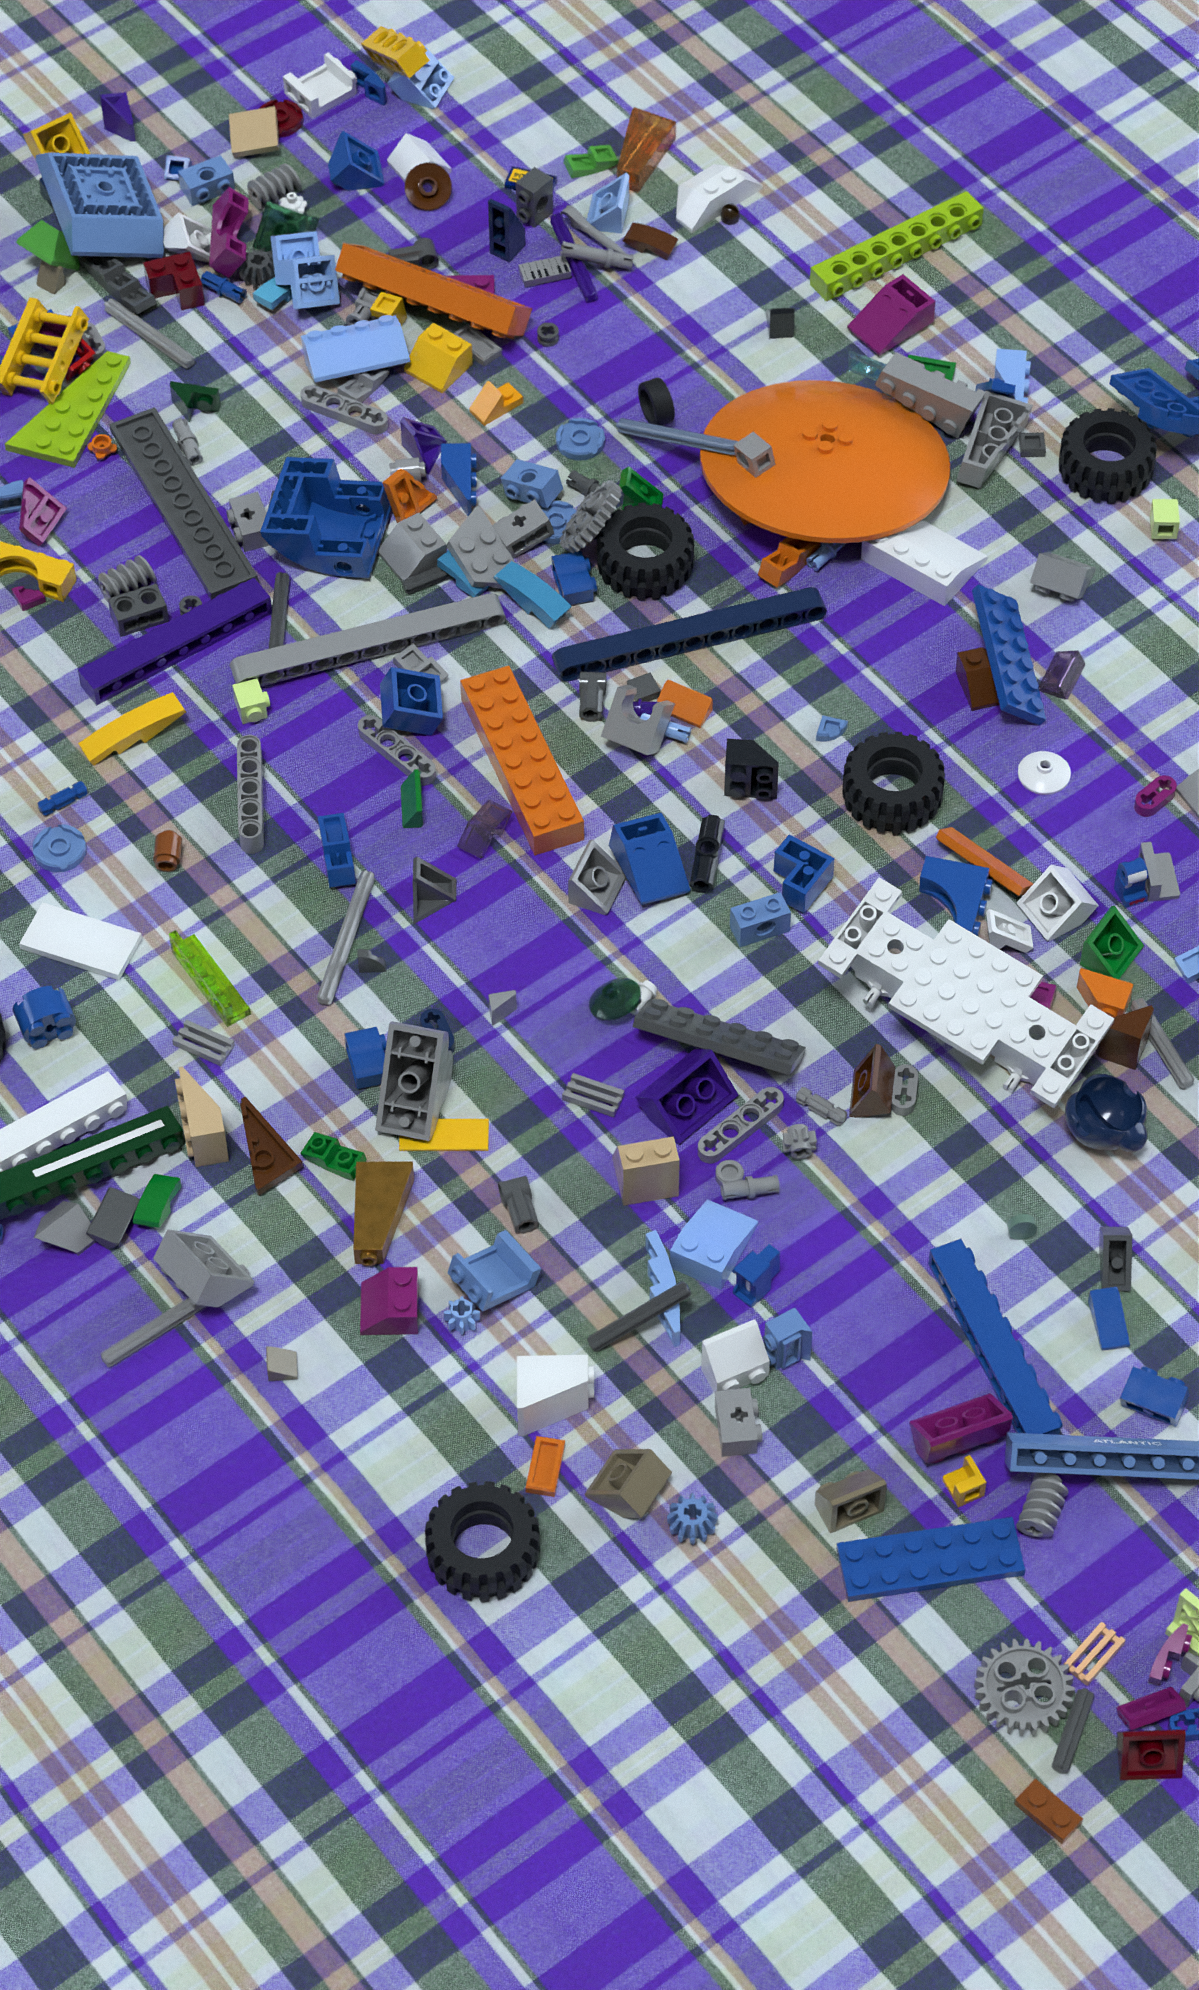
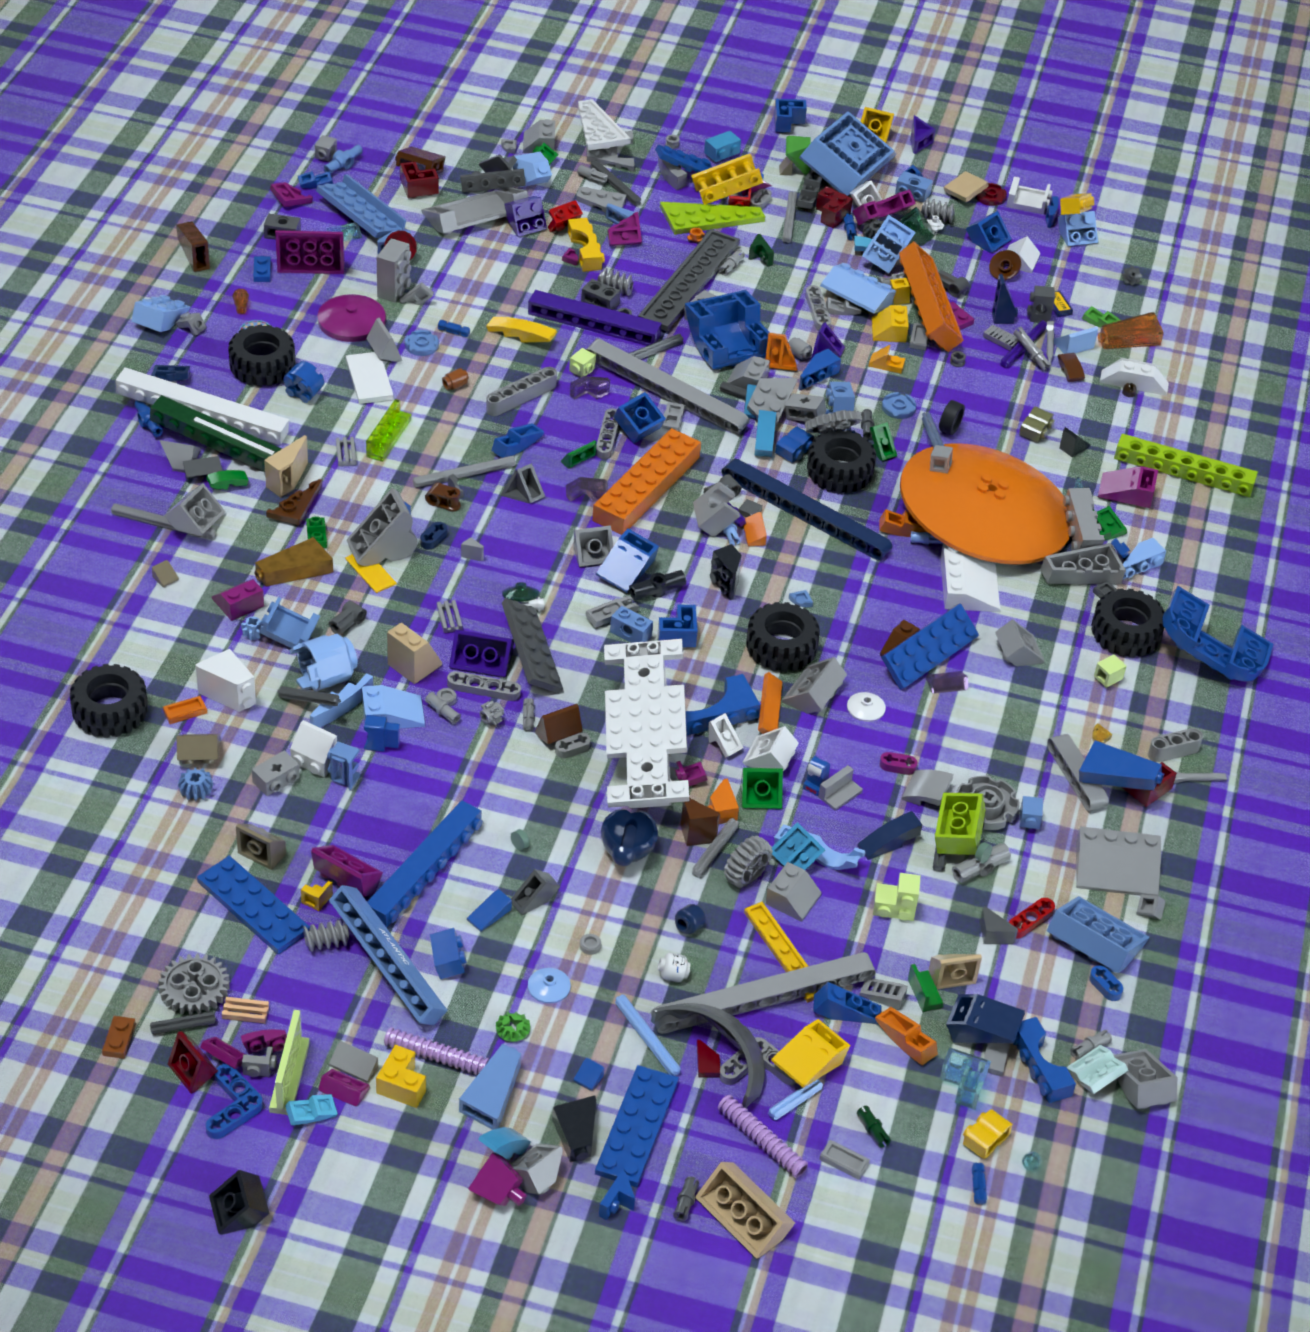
camera: 50 degrees right, 10 degrees down
(38, 887) = (382, 342): none -> light grey slope
(302, 716) = (595, 386): none -> clear purple slope
(377, 984) = (444, 497): none -> reddish brown piece
(544, 85) = (1131, 275): none -> dark grey plant
(597, 1268) = (325, 661): none -> light blue piece
(713, 927) = (602, 614): none -> light grey hinge
(724, 333) = (1037, 424): none -> olive brick
(985, 800) = (815, 686): none -> light grey slope

